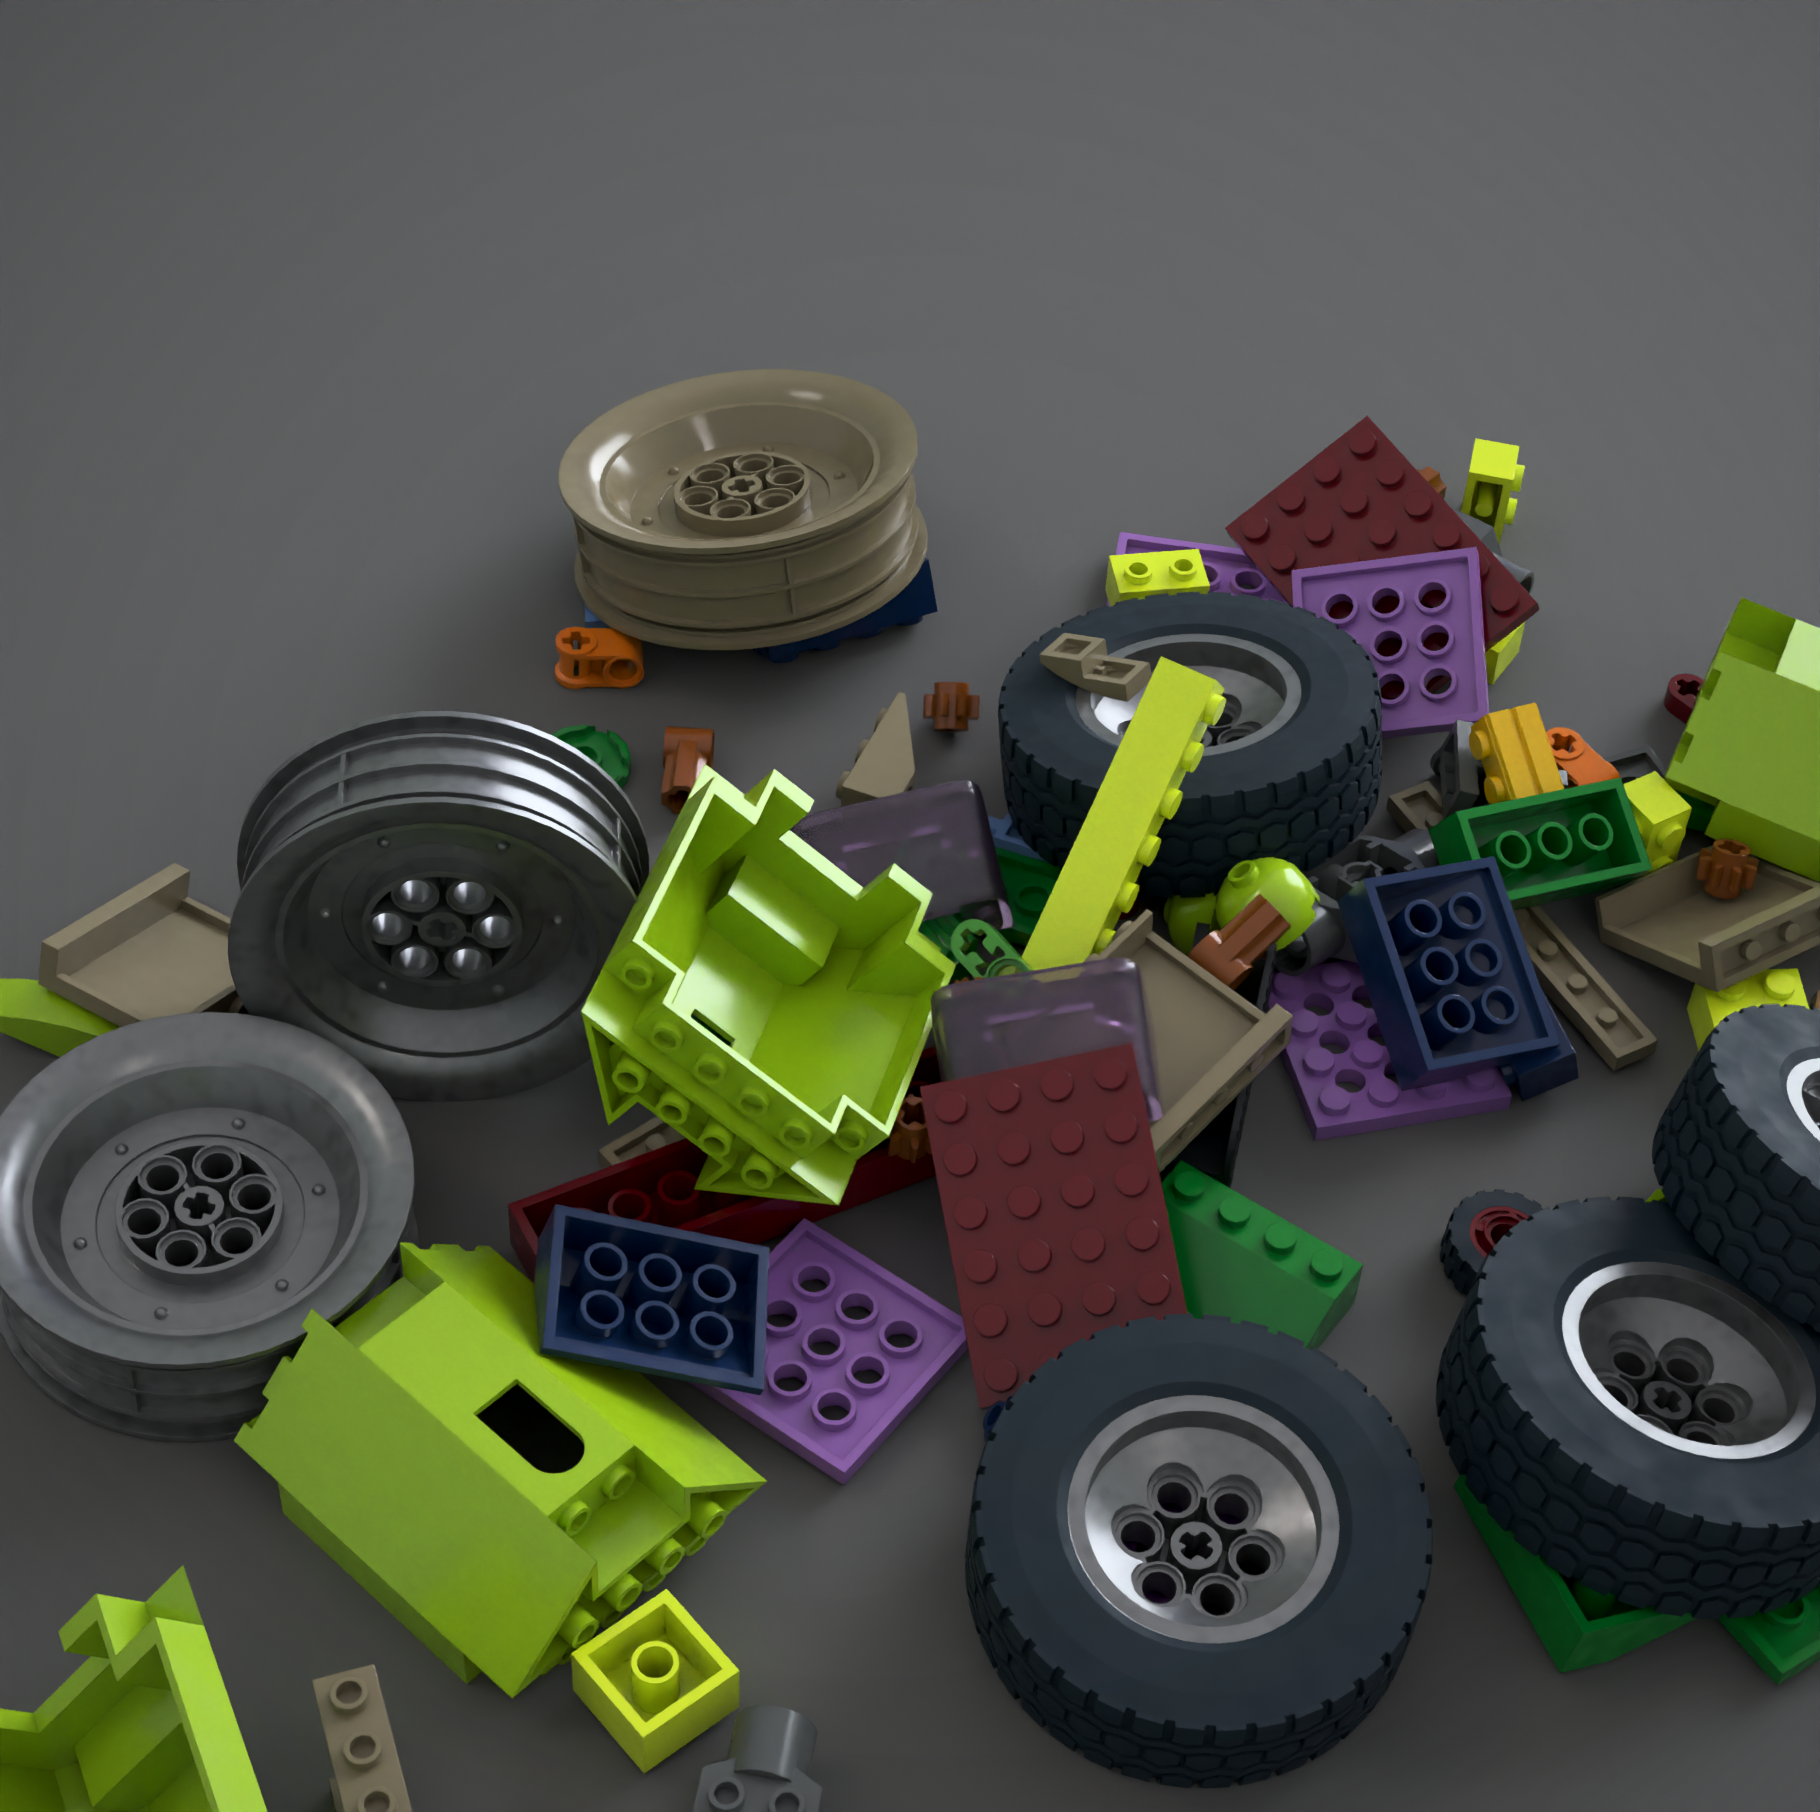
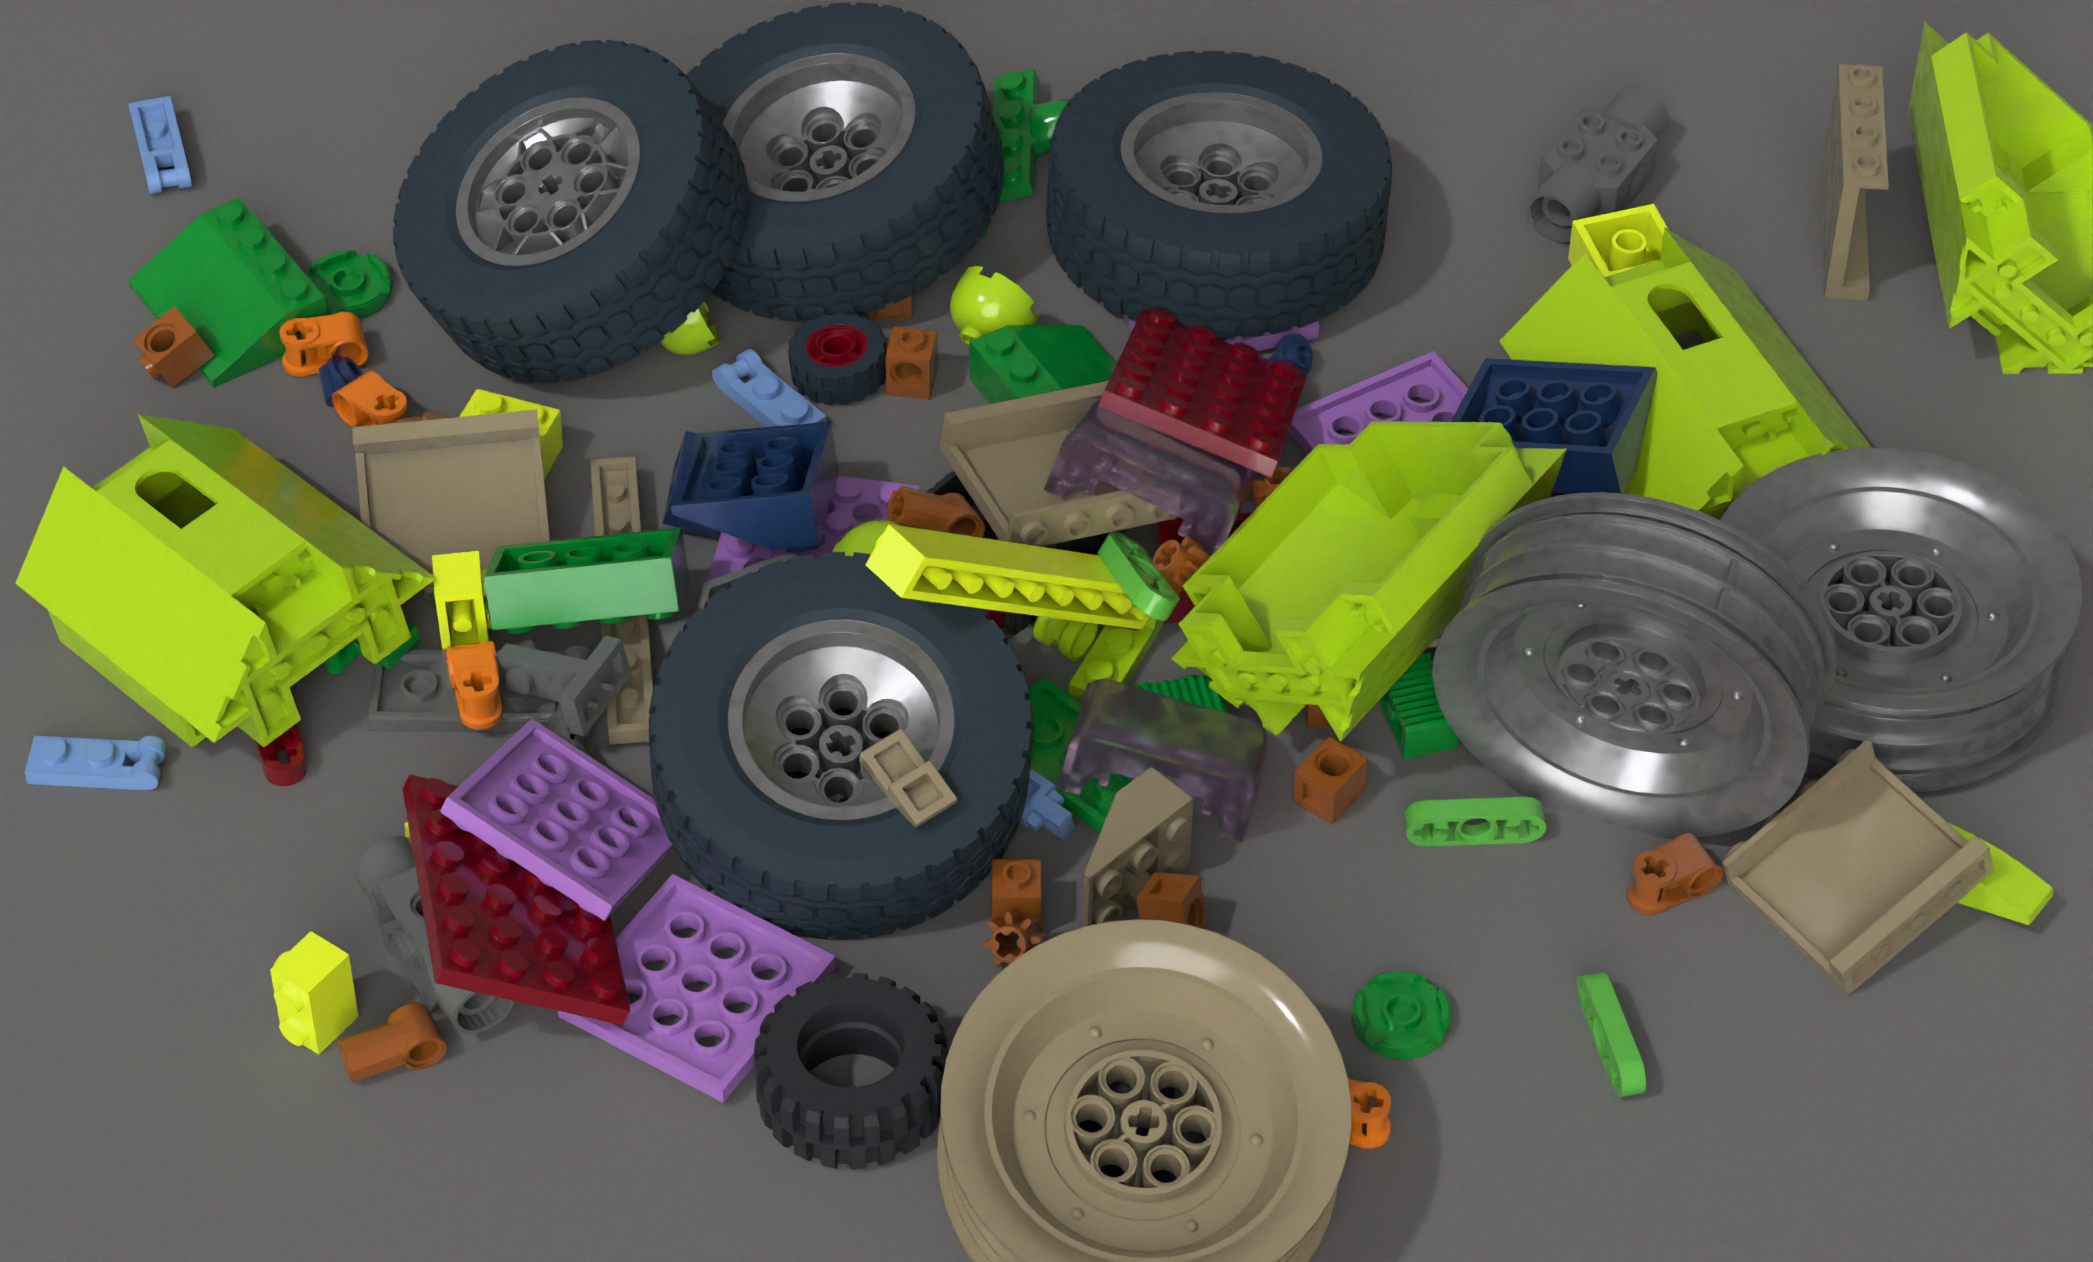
camera: 155 degrees left, 0 degrees up
(683, 759) = (1311, 955): dark orange piece -> none
(823, 753) = (1173, 899): none -> dark orange brick
(970, 742) = (1016, 885): none -> dark orange brick
(1021, 521) = (841, 1020): none -> black tyre
(1155, 574) = (738, 975): neon yellow brick -> none
(1377, 1343) = (988, 304): none -> lime cylinder
(1418, 1260) = (911, 362): none -> dark orange brick
(1507, 1656) = (1023, 129): none -> green plate
(1514, 754) = (557, 633): yellow brick -> none
(1537, 1182) = (766, 394): none -> medium blue plate
(1727, 868) = (420, 543): dark orange gear -> none

